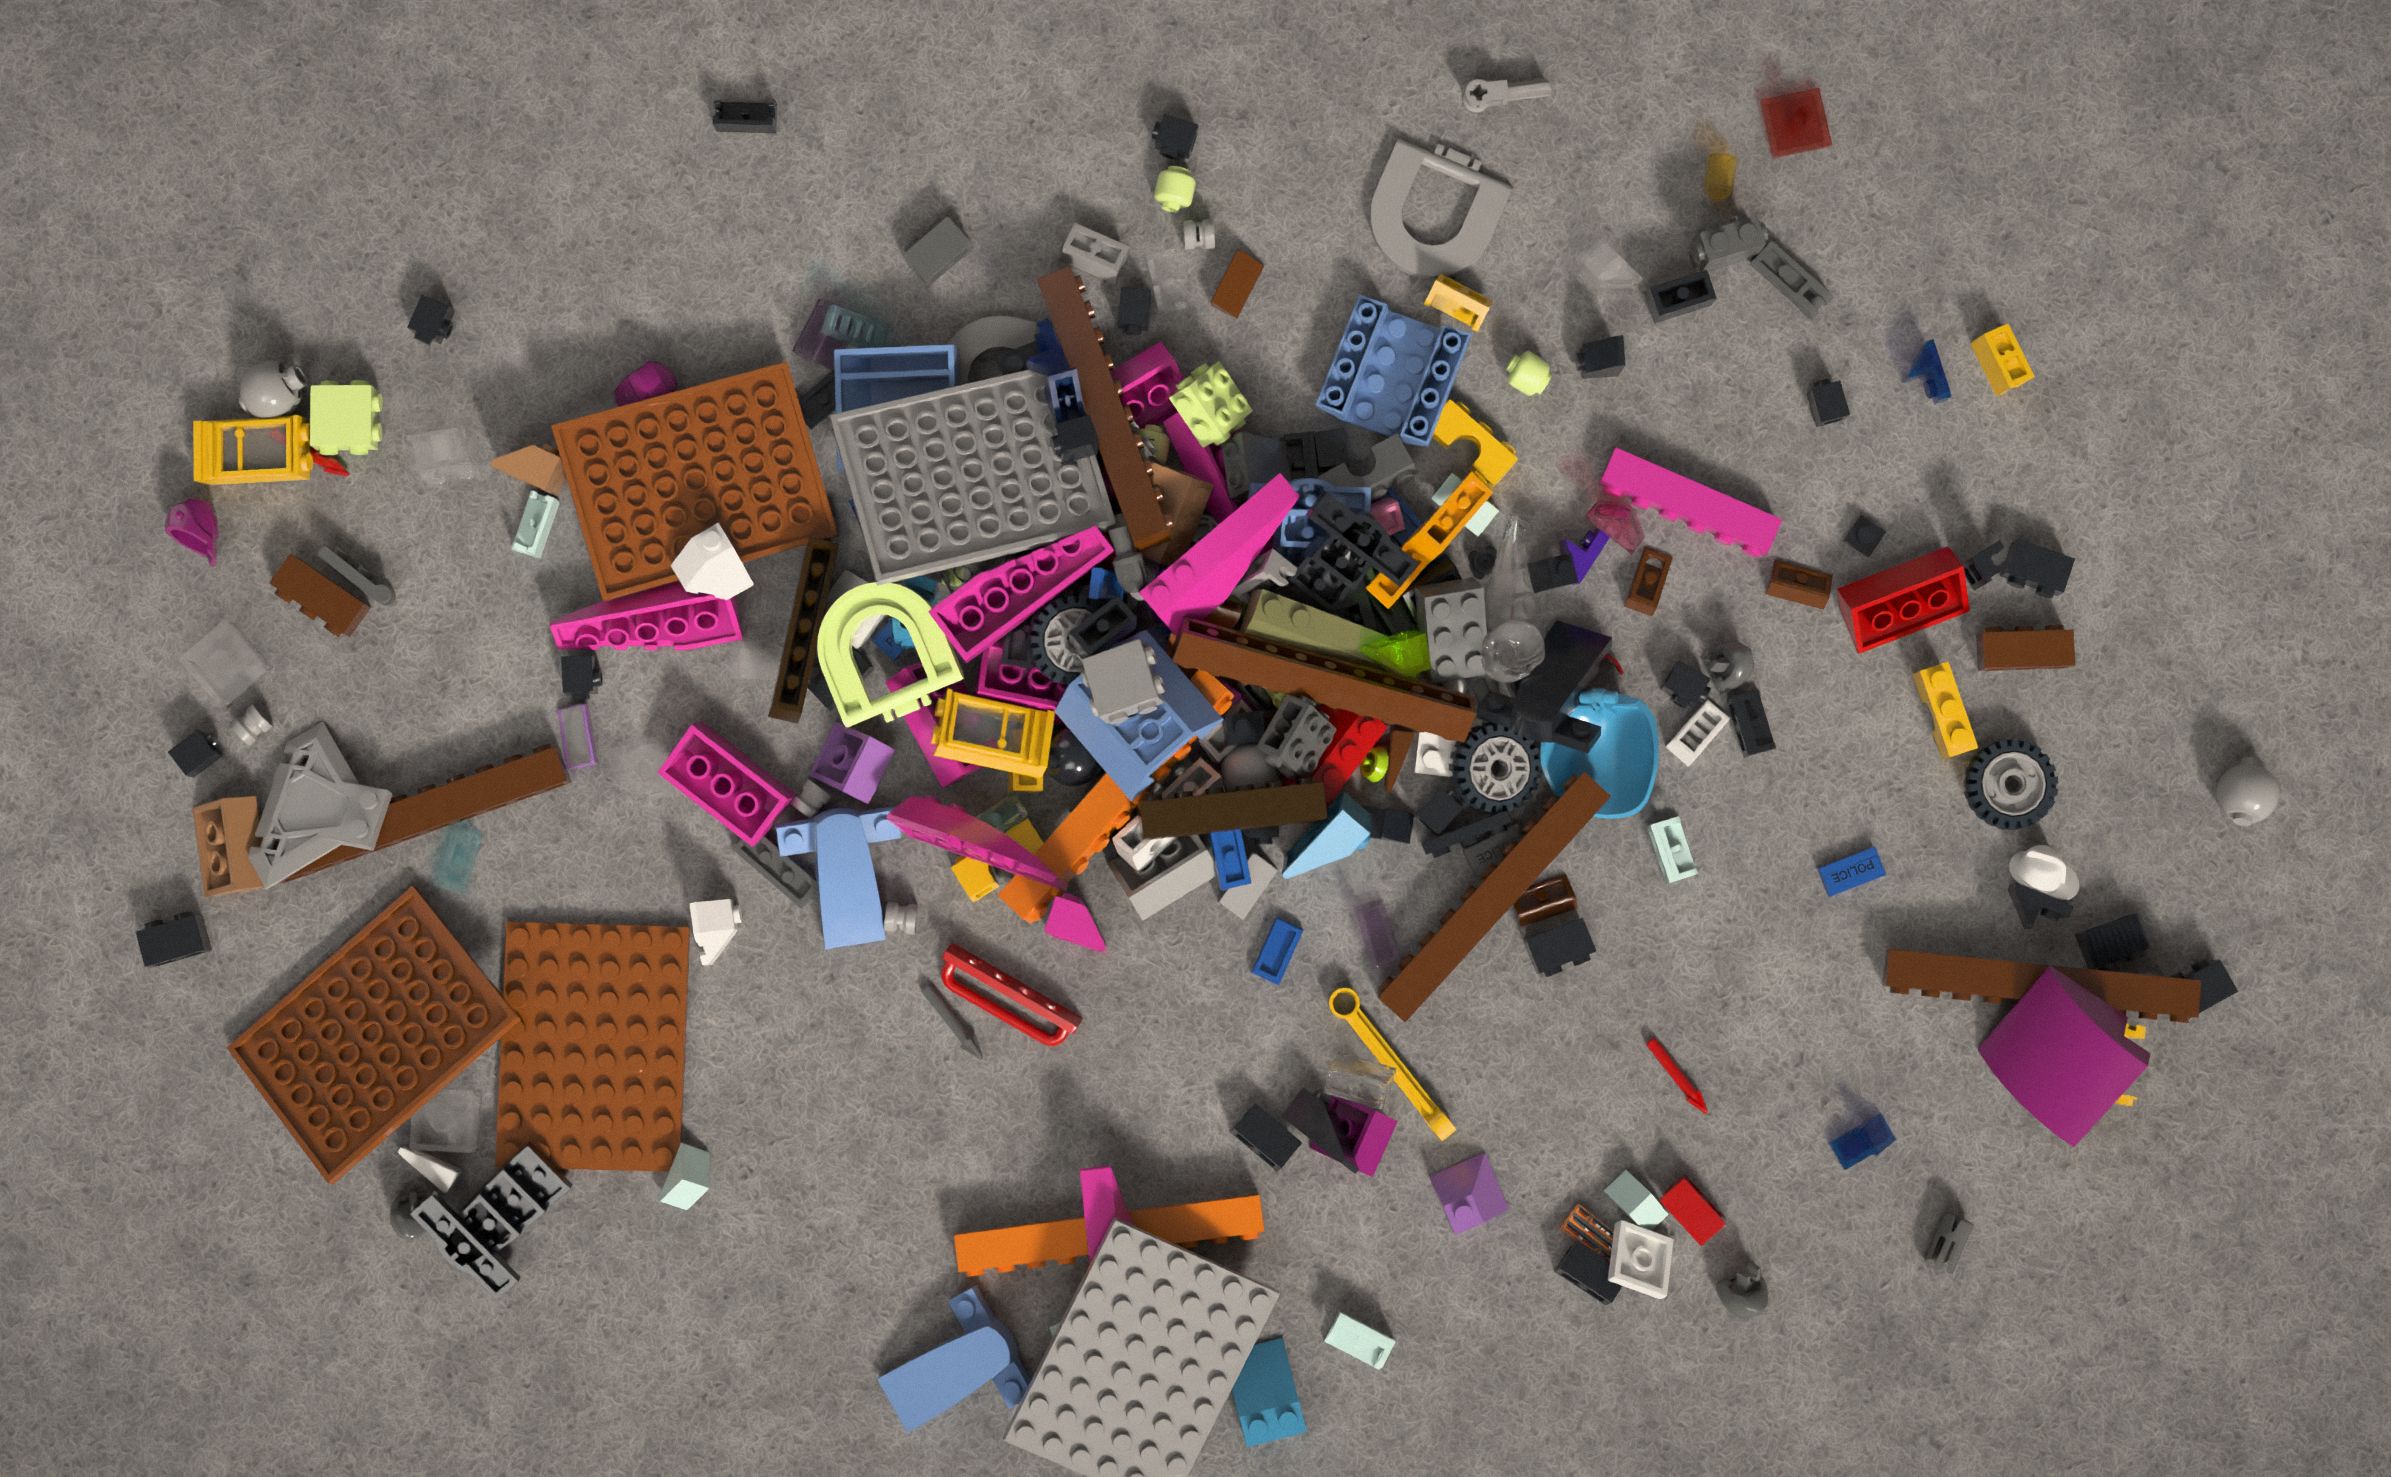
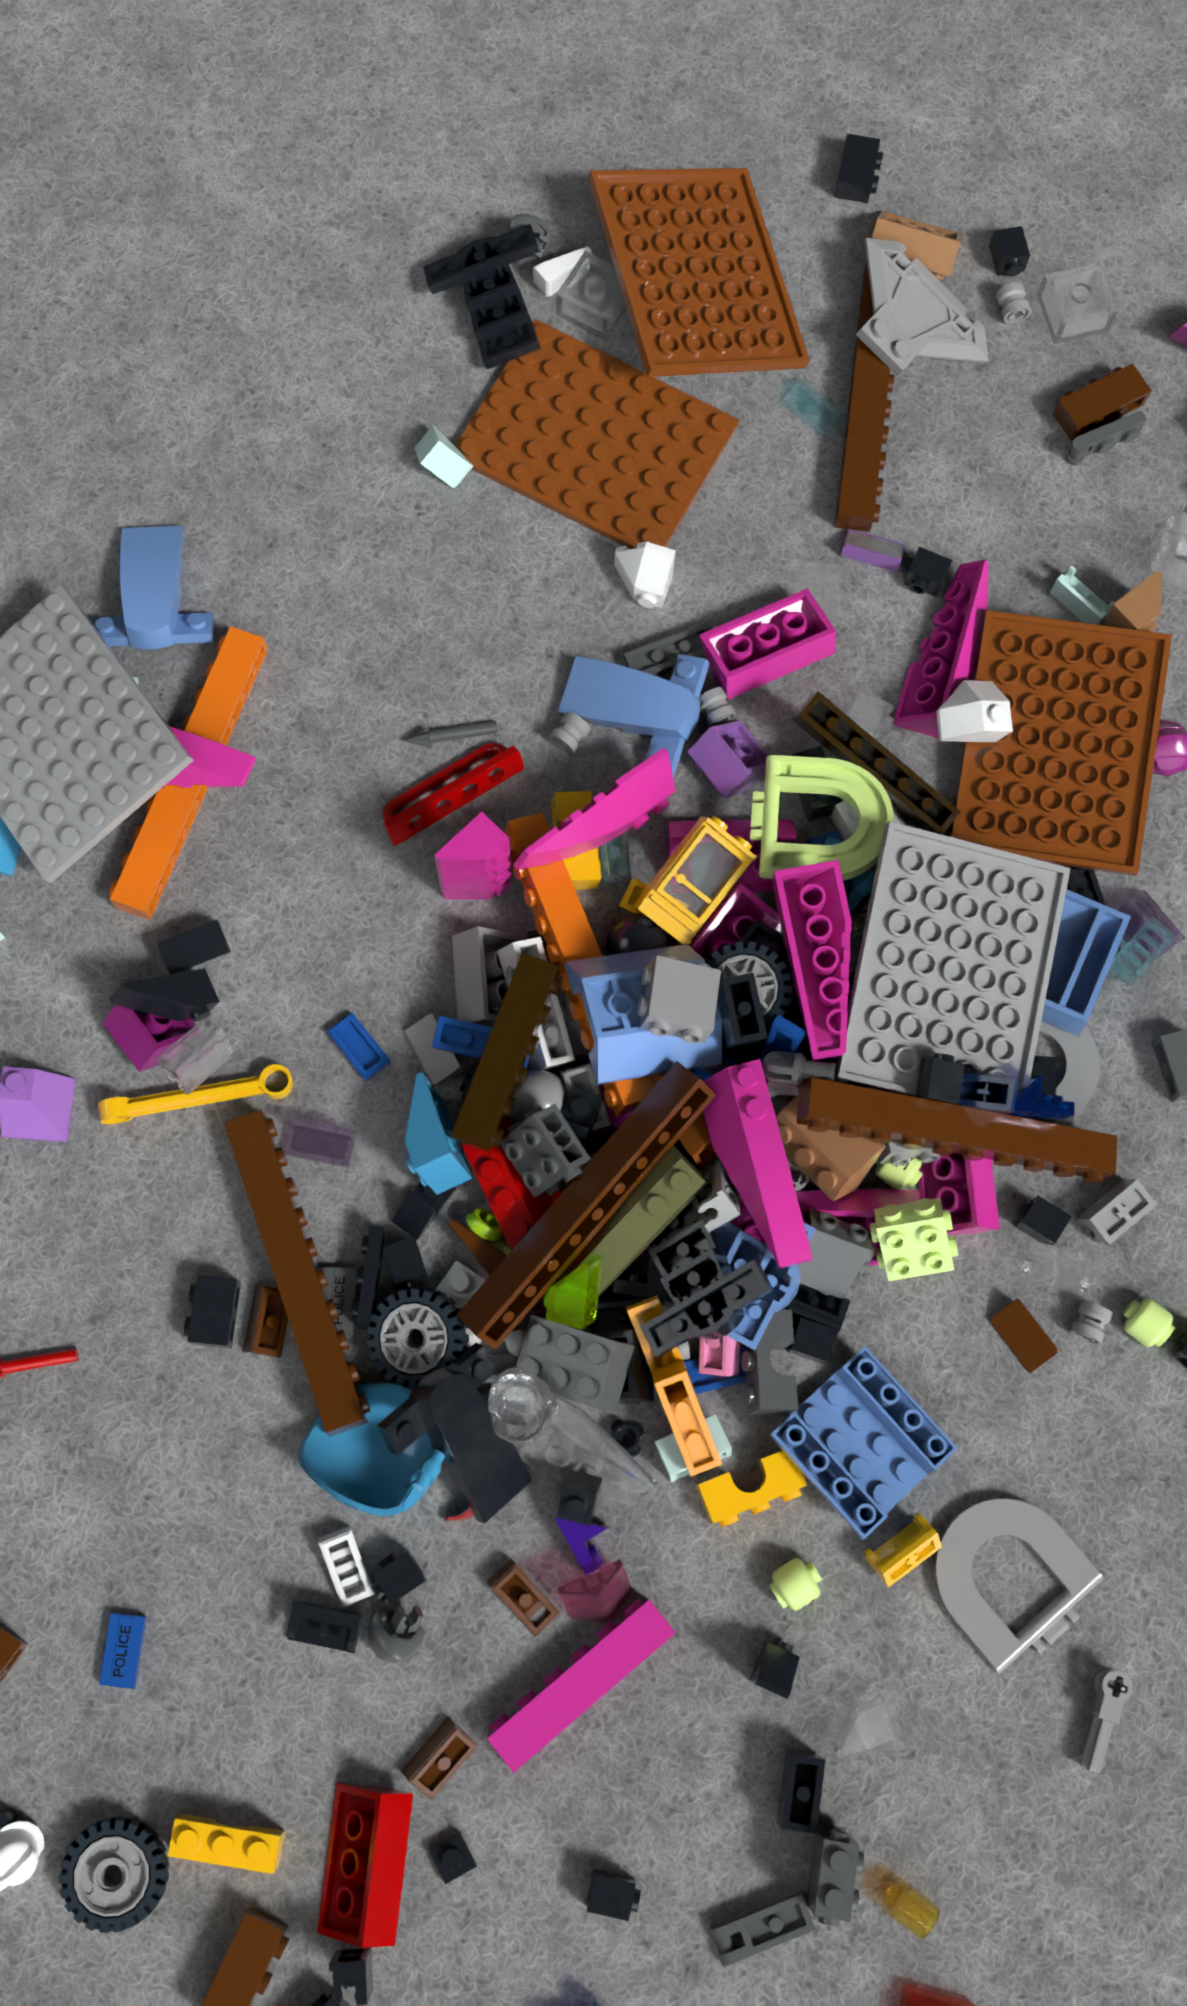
camera: 115 degrees right, 10 degrees down
(1672, 850) = (244, 1475): light aqua hinge -> none

